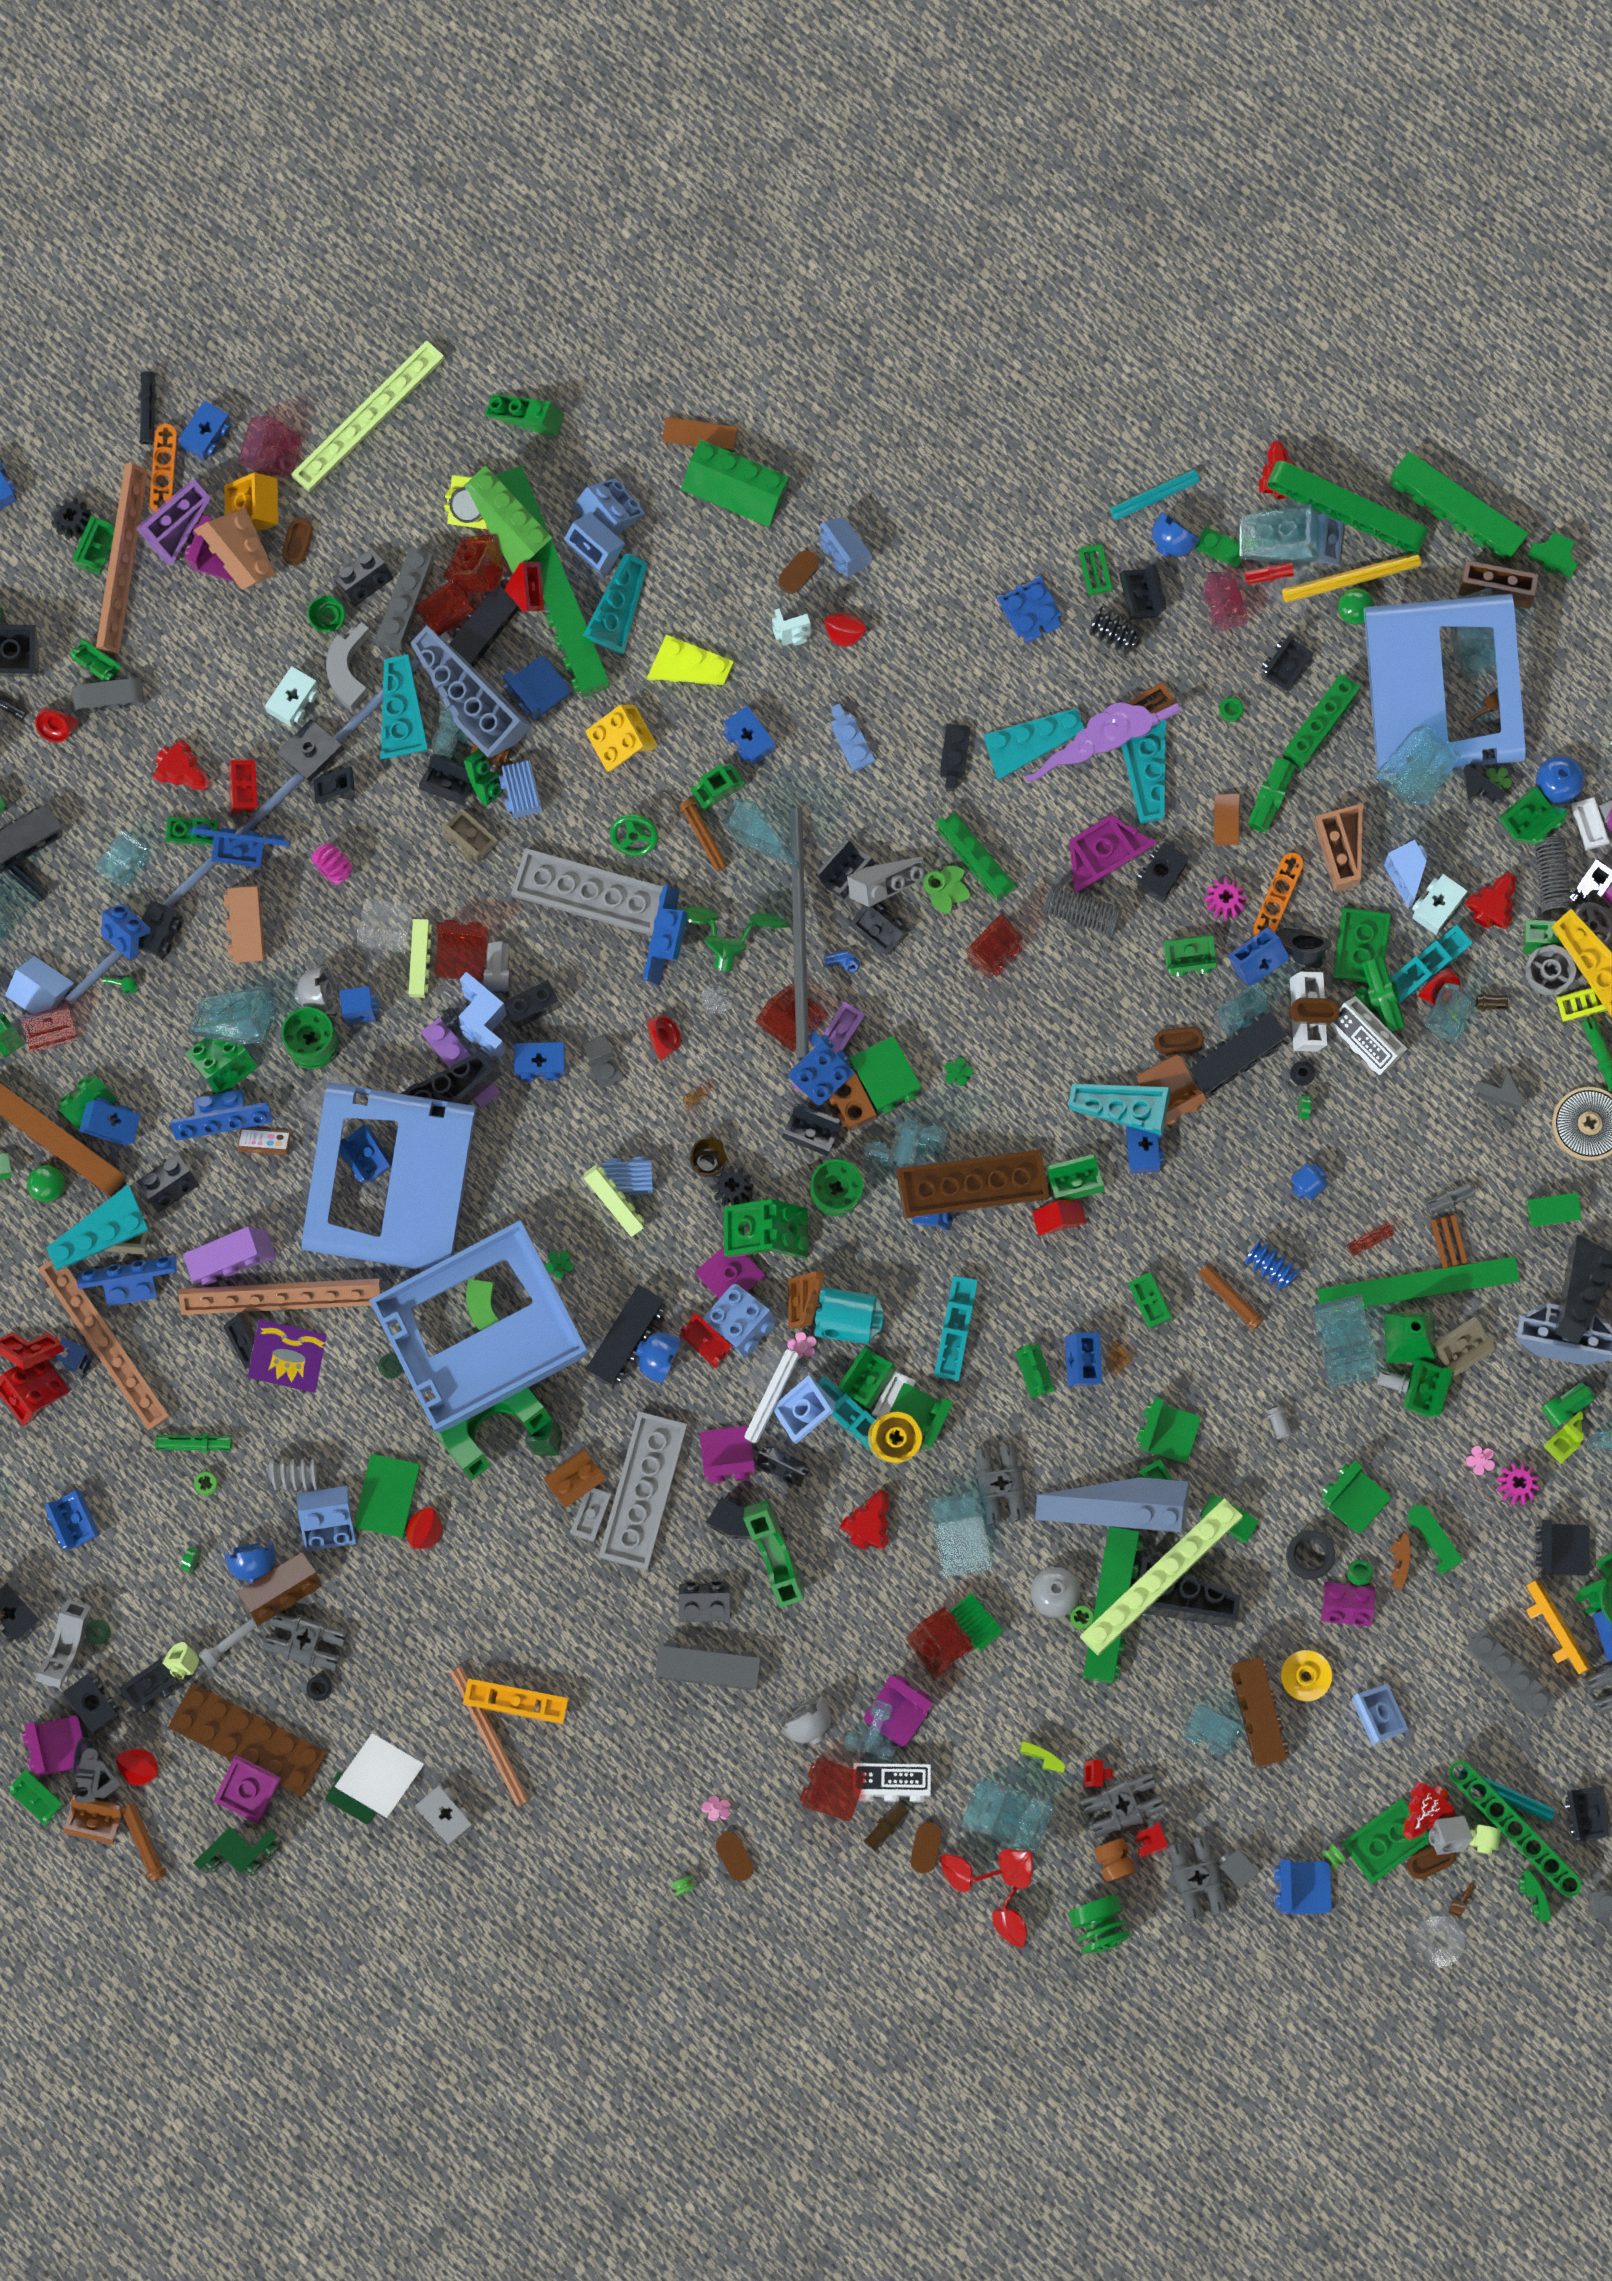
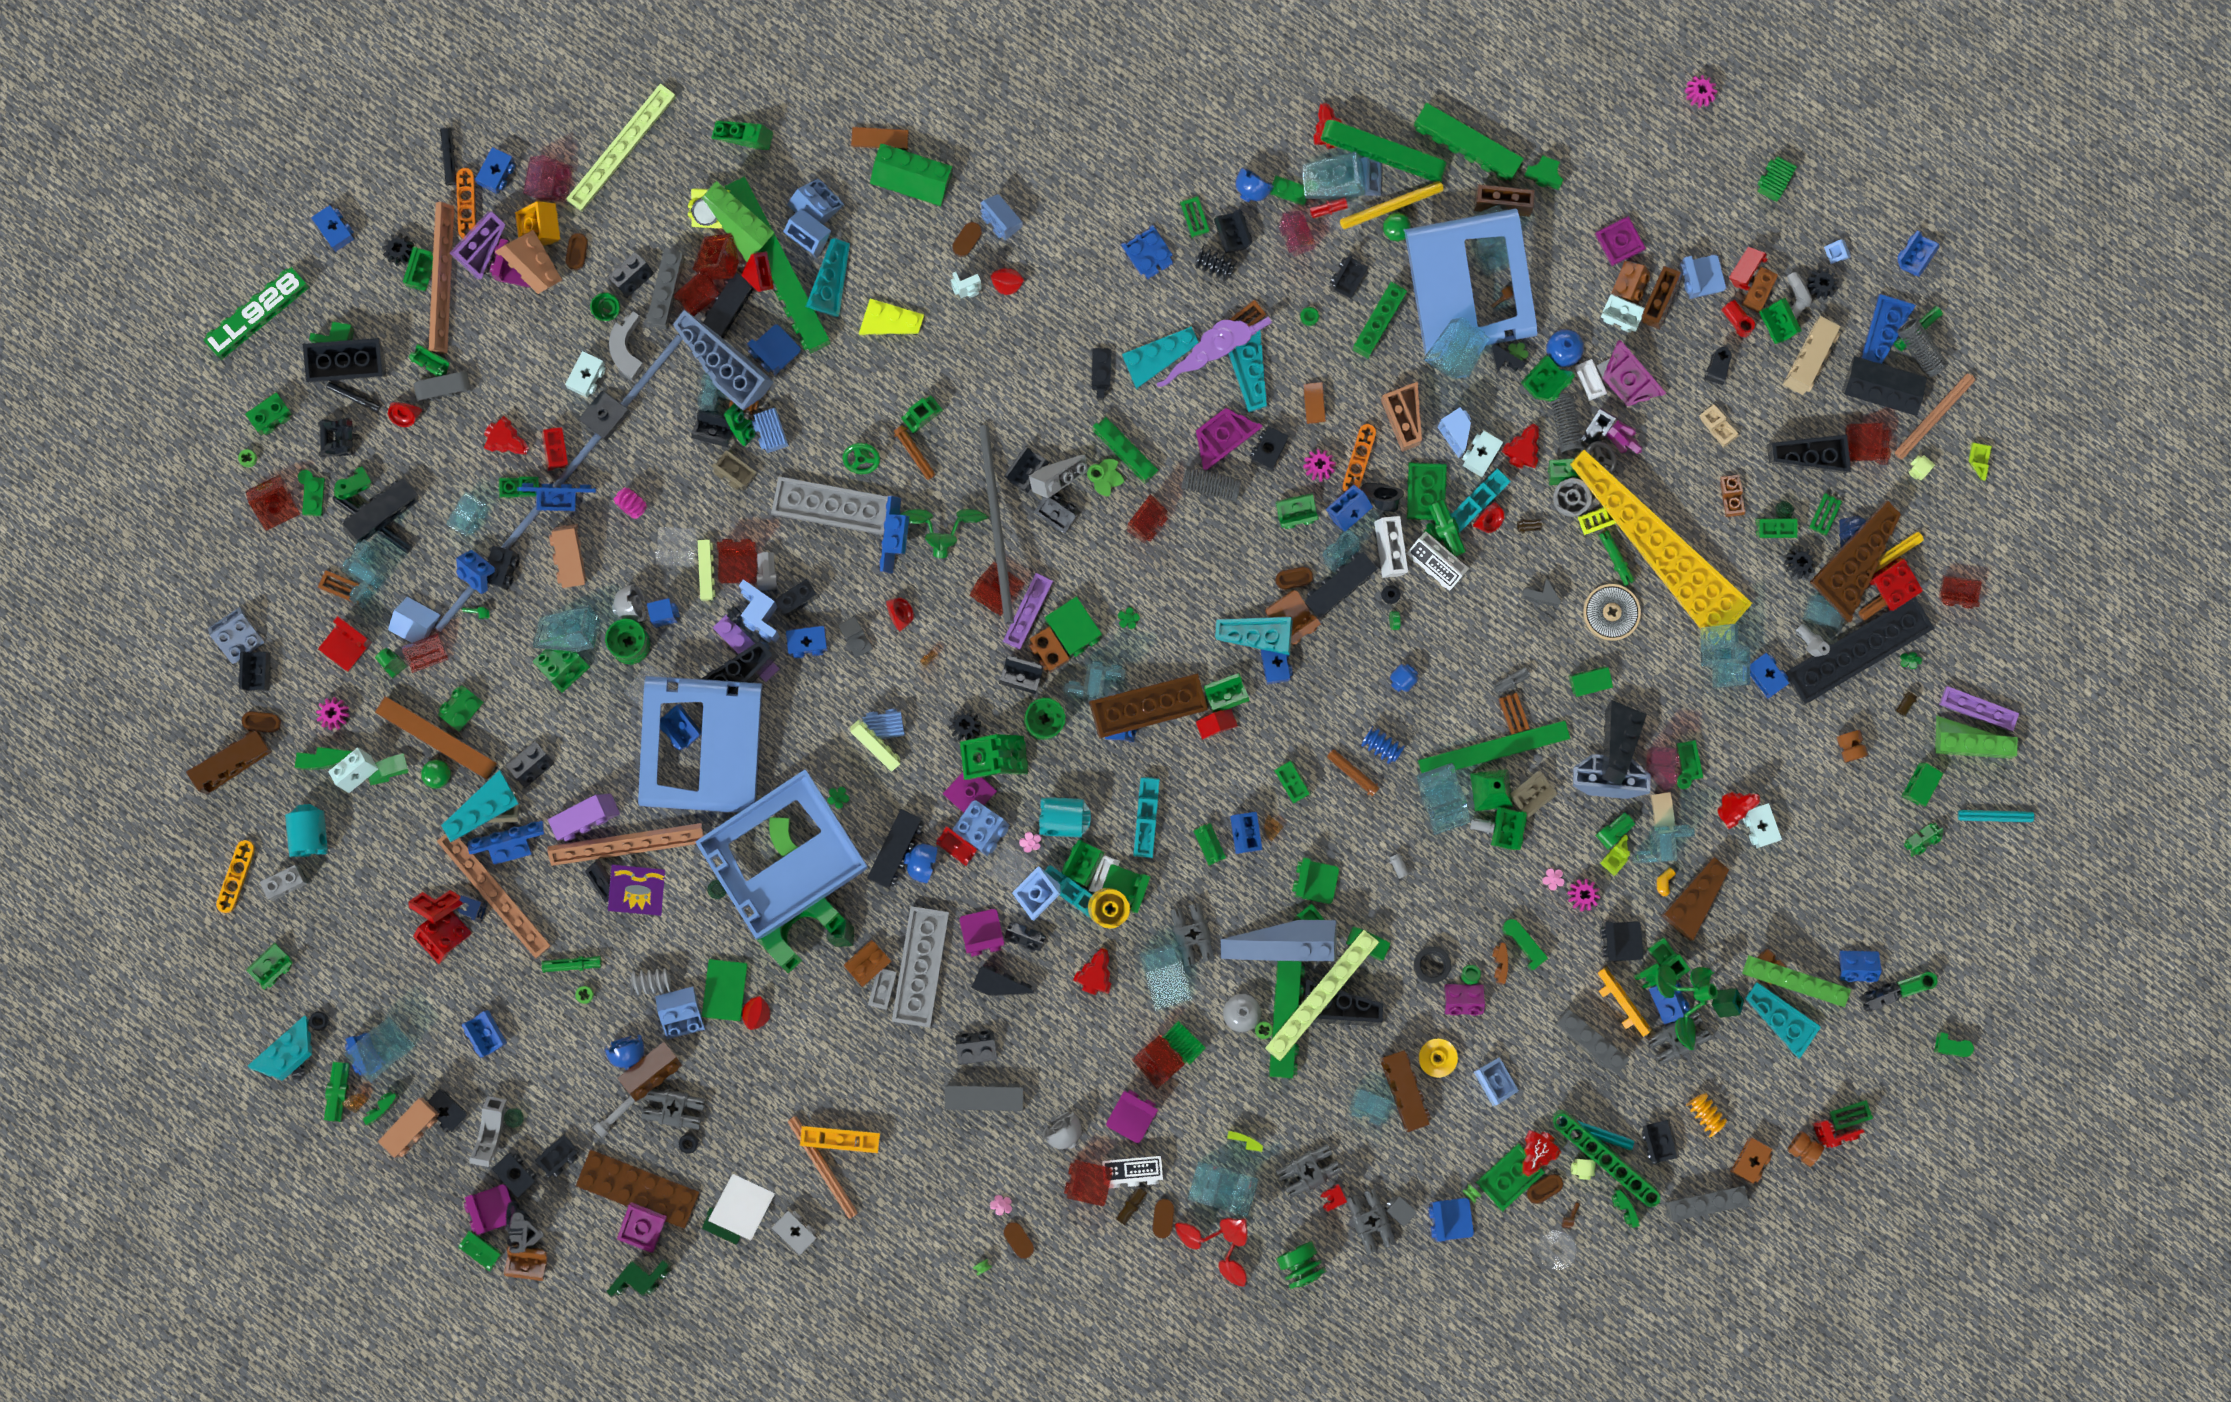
camera: 15 degrees left, 5 degrees up
(96, 1123) = (469, 722): blue brick -> none
(137, 1766) = (555, 1218): red piece -> none
(143, 1843) = (566, 1276): dark orange axle -> none
(181, 1660) = (580, 1134): yellowish green plate -> none
(190, 1559) = (578, 1055): green tile -> none
(221, 1114) = (565, 706): blue bracket -> none
(264, 1141) = (601, 724): slope -> none
(334, 786) = (625, 442): black slope -> none
(401, 714) = (672, 384): teal wing -> none
(620, 736) = (843, 381): yellow bracket -> none
(710, 1148) = (943, 696): dark brown hair -> none
(716, 999) = (937, 580): clear gear -> none
(746, 723) = (937, 362): blue brick -> none
(754, 831) = (953, 446): clear light blue slope -> none
(771, 1396) = (1011, 884): white axle -> none
(775, 1552) = (1029, 1011): green arch -> none
(803, 1298) = (1028, 806): dark orange wing -> none
(821, 1069) = (1024, 629): blue bracket -> none
(843, 959) = (1032, 539): blue arm -> none
(850, 739) = (1020, 367): medium blue hinge -> none
(871, 1740) = (1114, 1141): clear light blue bar -> none
(1095, 1773) = (1286, 1149): red tile -> none
(1115, 1860) = (1307, 1214): dark orange wheel -> none
(1154, 495) = (1234, 154): teal axle -> none
(1271, 795) = (1346, 380): green piece -> none
(1314, 1011) = (1396, 547): reddish brown tile -> none
(1354, 1497) = (1461, 918): green bracket -> none
(1370, 1239) = (1454, 717): clear red axle -> none
(1450, 1012) = (1498, 537): clear light blue brick -> none
(1450, 1835) = (1558, 1169): light grey brick -> none

